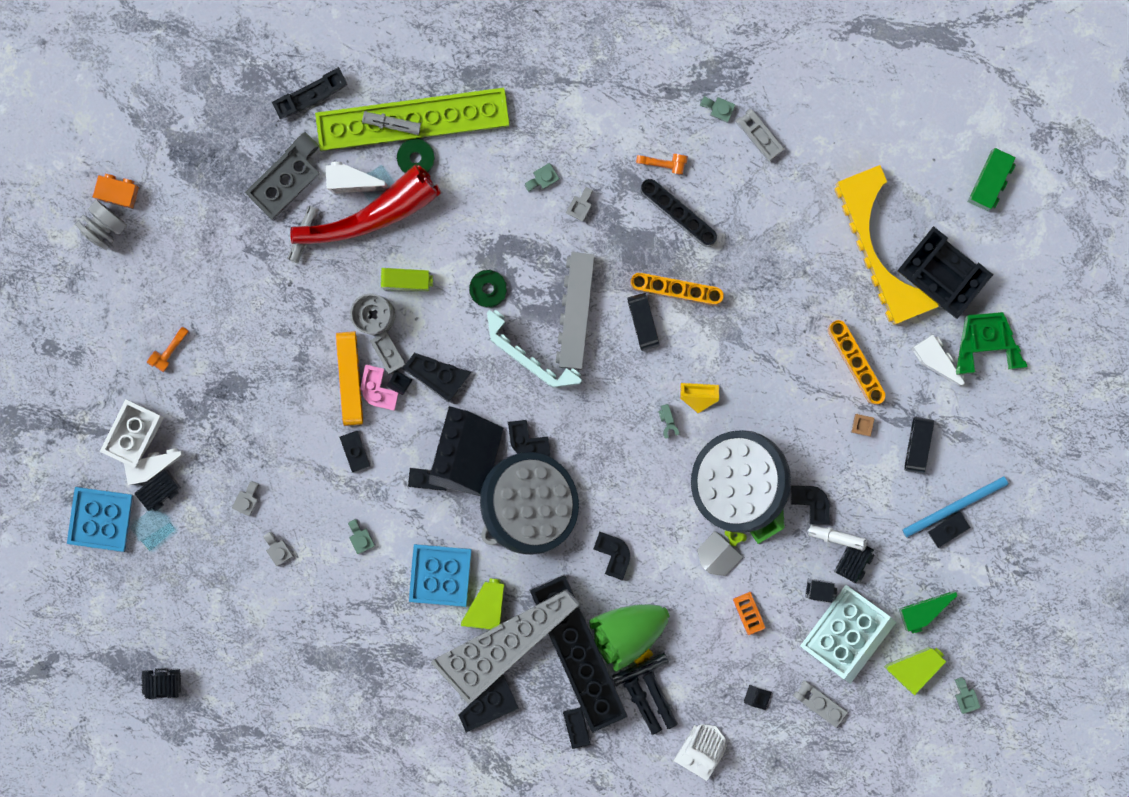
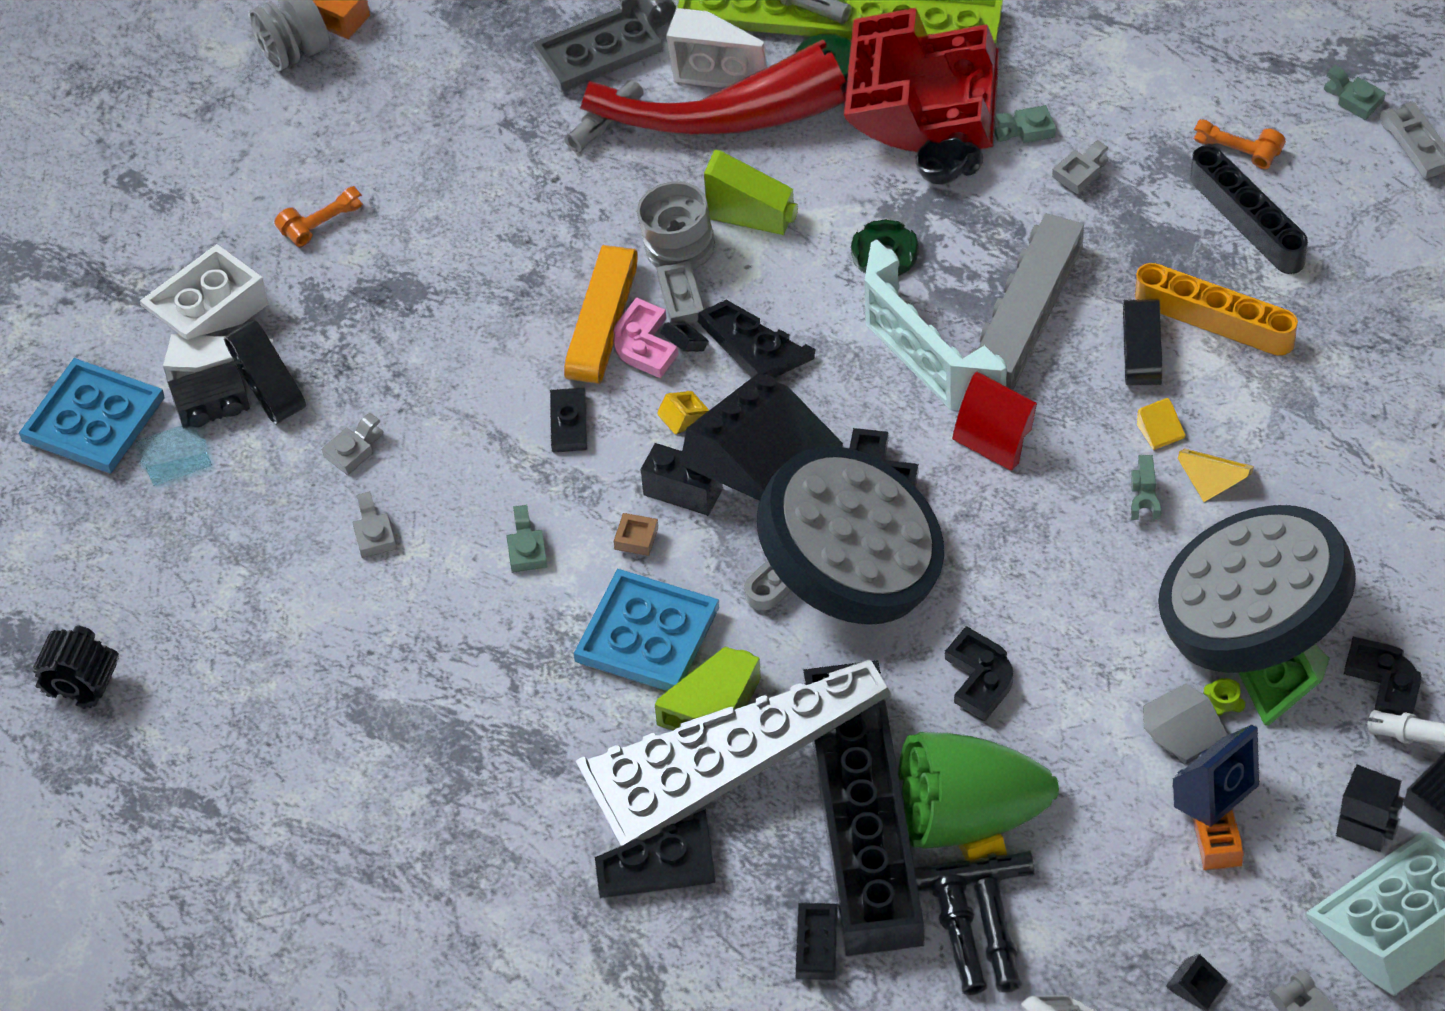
camera: 20 degrees right, 35 degrees down
(184, 474) = (264, 372): none -> black beam
(413, 428) = (681, 410): none -> yellow slope
(415, 517) = (636, 534): none -> medium nougat plate
(478, 172) = (920, 84): none -> red slope
(505, 221) = (947, 160): none -> black hair
(581, 403) = (994, 421): none -> red slope
(665, 373) = (1160, 424): none -> yellow slope
(744, 591) = (1219, 777): none -> dark blue slope

